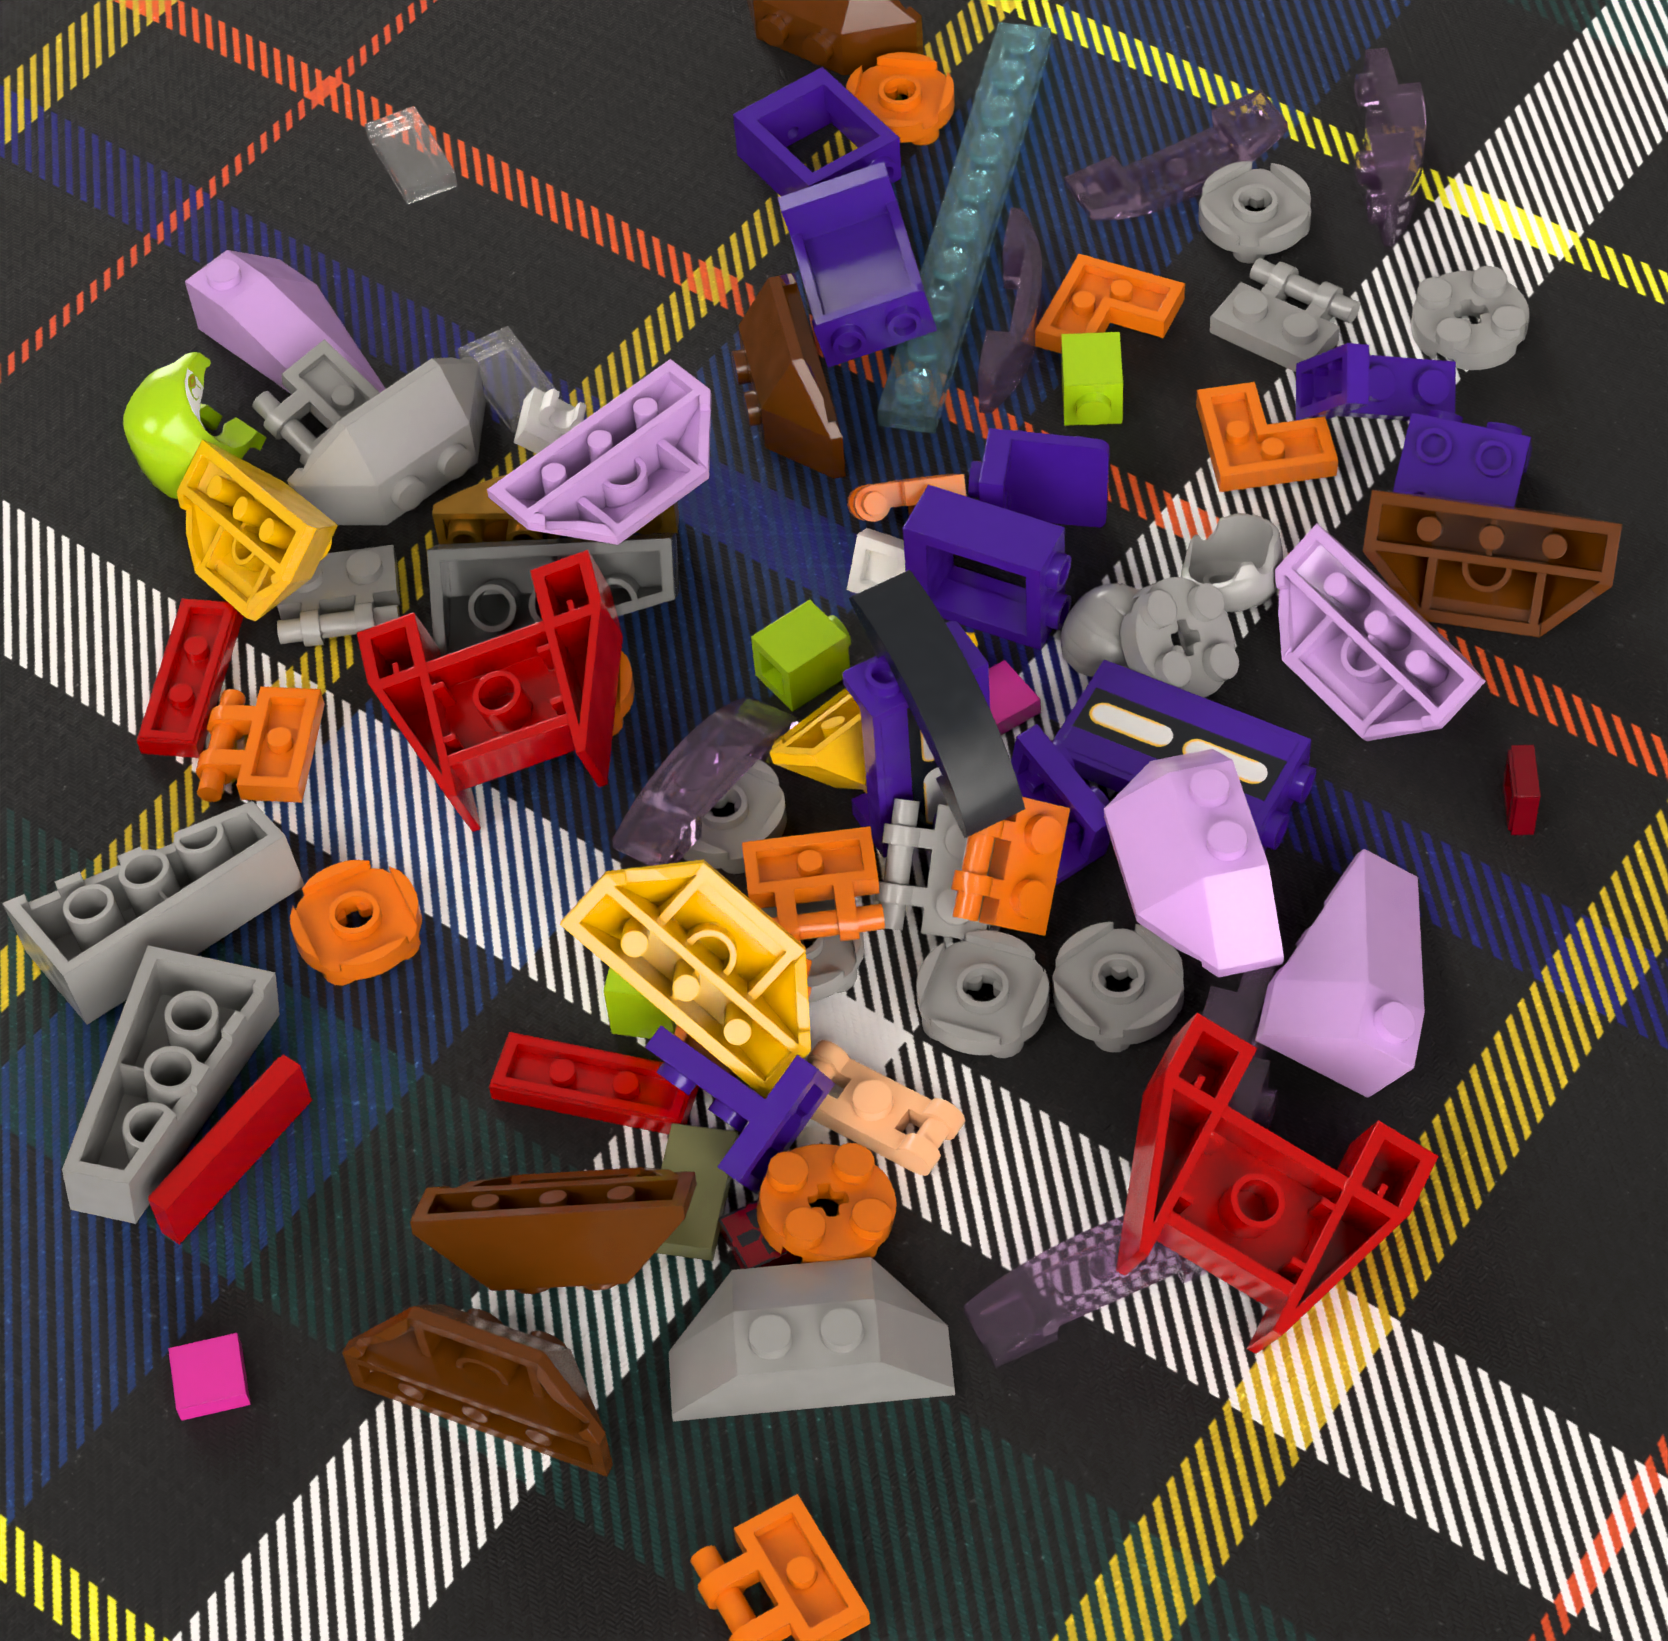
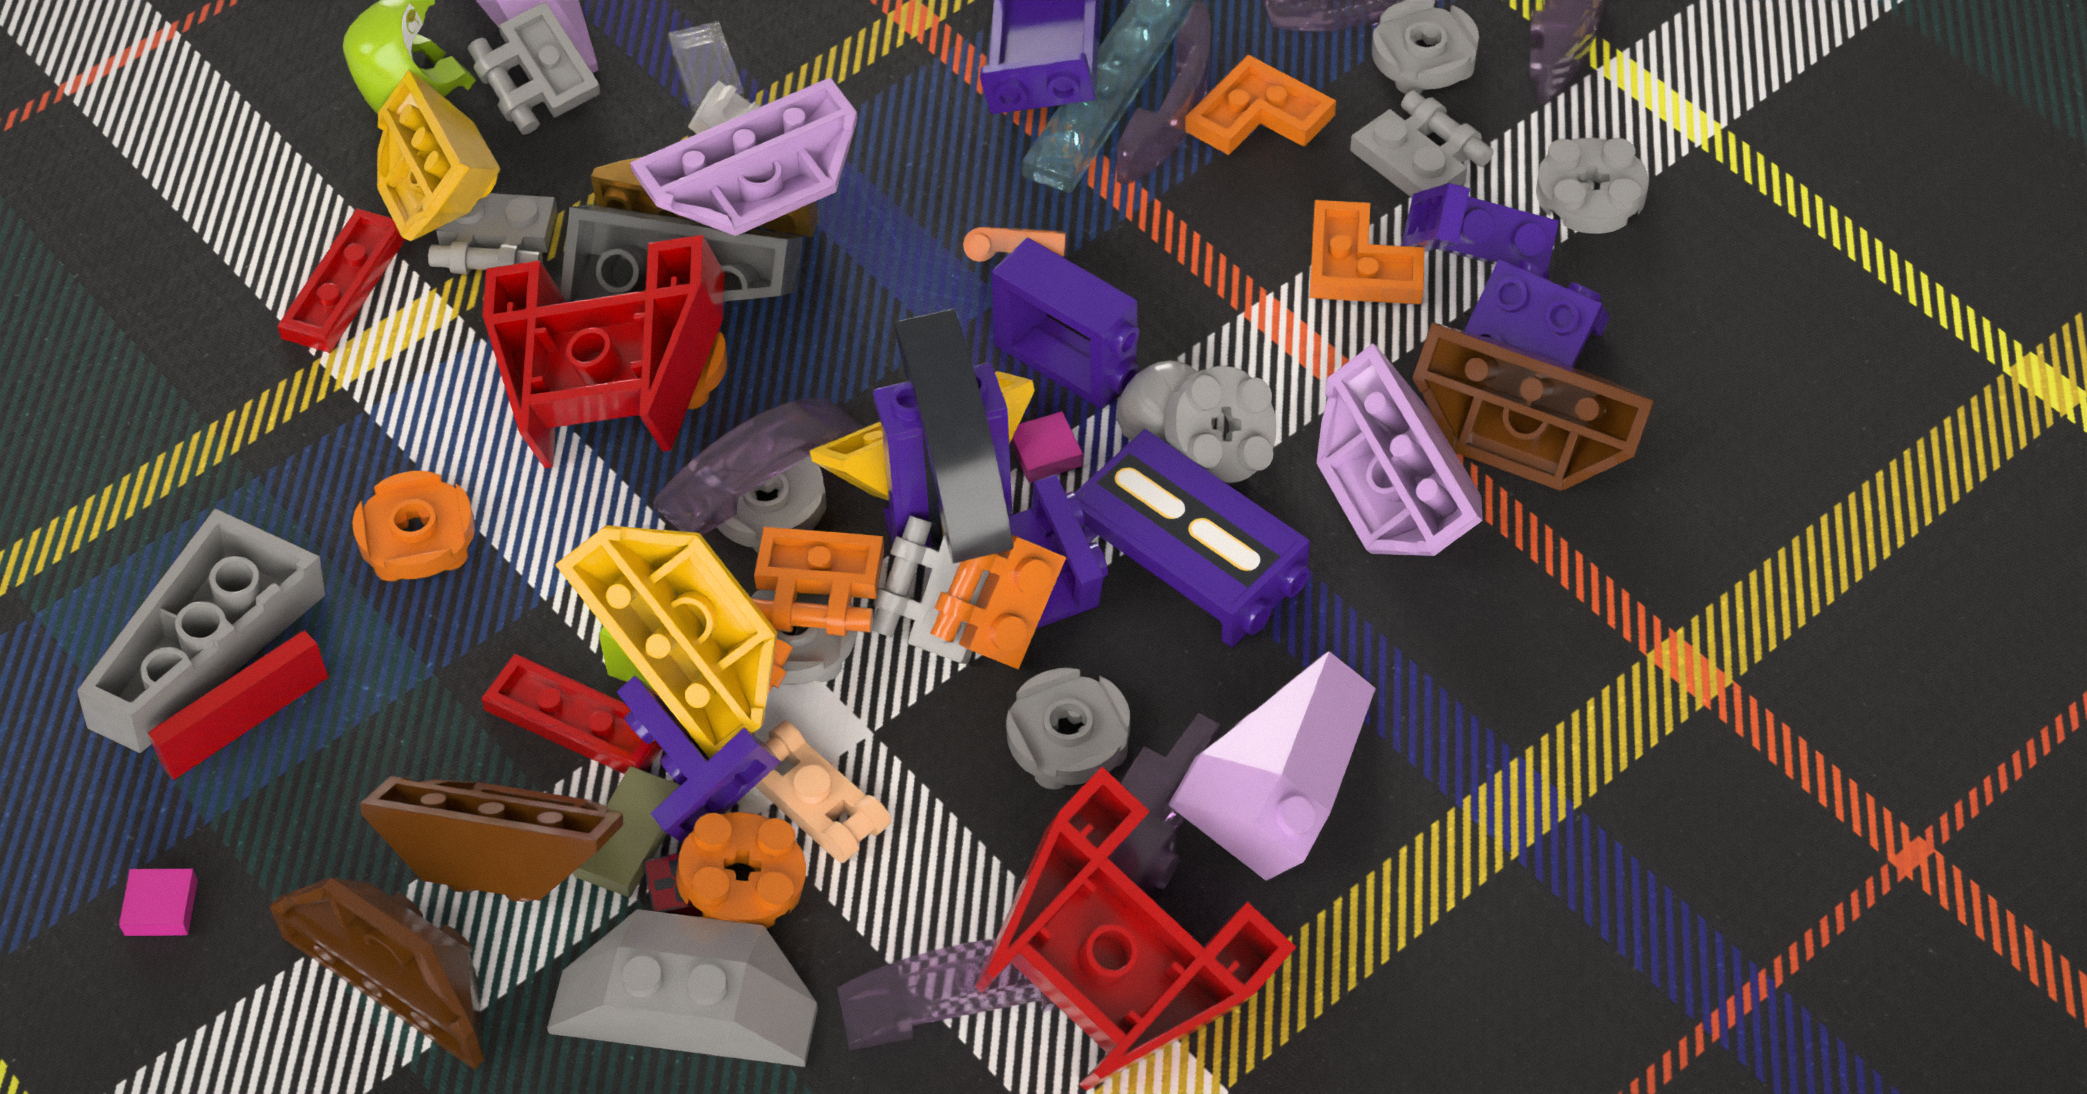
camera: 10 degrees right, 0 degrees up
(169, 898) = (245, 471): light grey wedge -> none
(277, 750) = (397, 353): orange plate -> none
(398, 445) = (584, 108): light grey wedge -> none
(787, 380) = (948, 115): reddish brown wedge -> none
(801, 654) = (867, 364): lime brick -> none
(875, 560) = (974, 304): white tile -> none
(988, 1026) = (948, 740): light grey plate -> none
(1044, 476) = (1140, 252): dark purple bracket -> none
(1092, 378) = (1223, 171): lime brick -> none
(1197, 862) = (1160, 632): lavender wedge -> none
(1237, 560) = (1296, 364): light grey hair -> none
(1521, 790) = (1493, 627): dark red tile -> none

